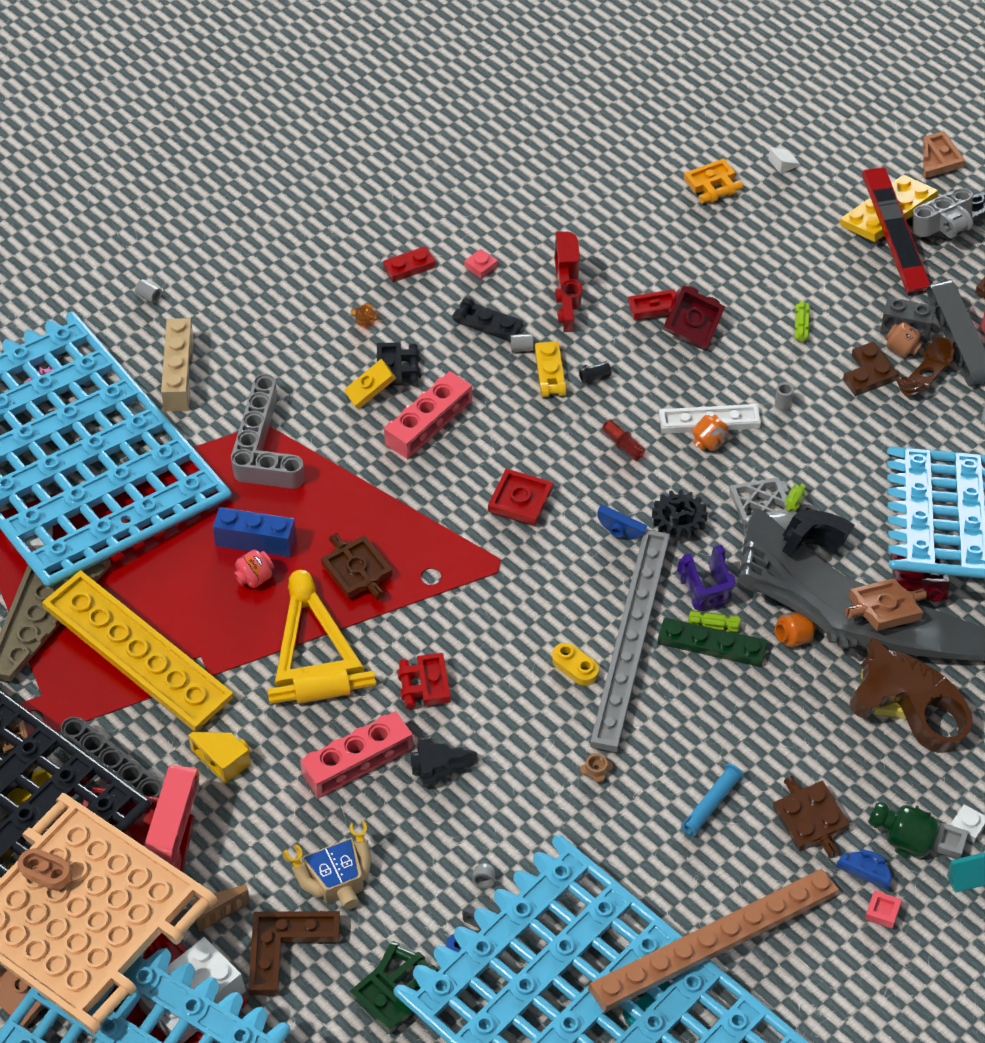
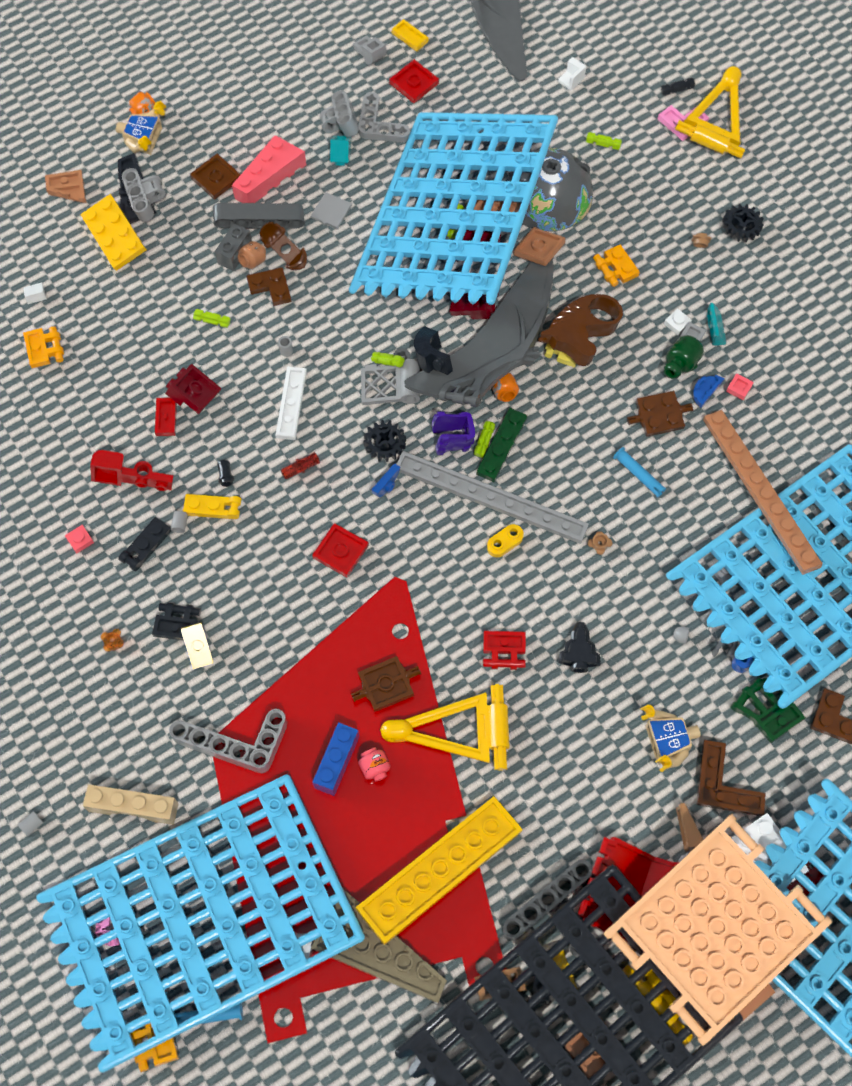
camera: 80 degrees left, 15 degrees up
(48, 869) = (685, 948): nougat plate -> none
(172, 813) = (625, 851): coral beam -> none
(221, 753) = (550, 811): yellow slope -> none
(350, 766) = (558, 677): coral brick -> none
(409, 264) = (62, 596): red plate -> none
(428, 414) = (224, 579): coral brick -> none
(710, 433) = (312, 403): orange head -> none
(885, 604) = (506, 321): nougat plate -> none
(896, 230) = (144, 230): tile -> none

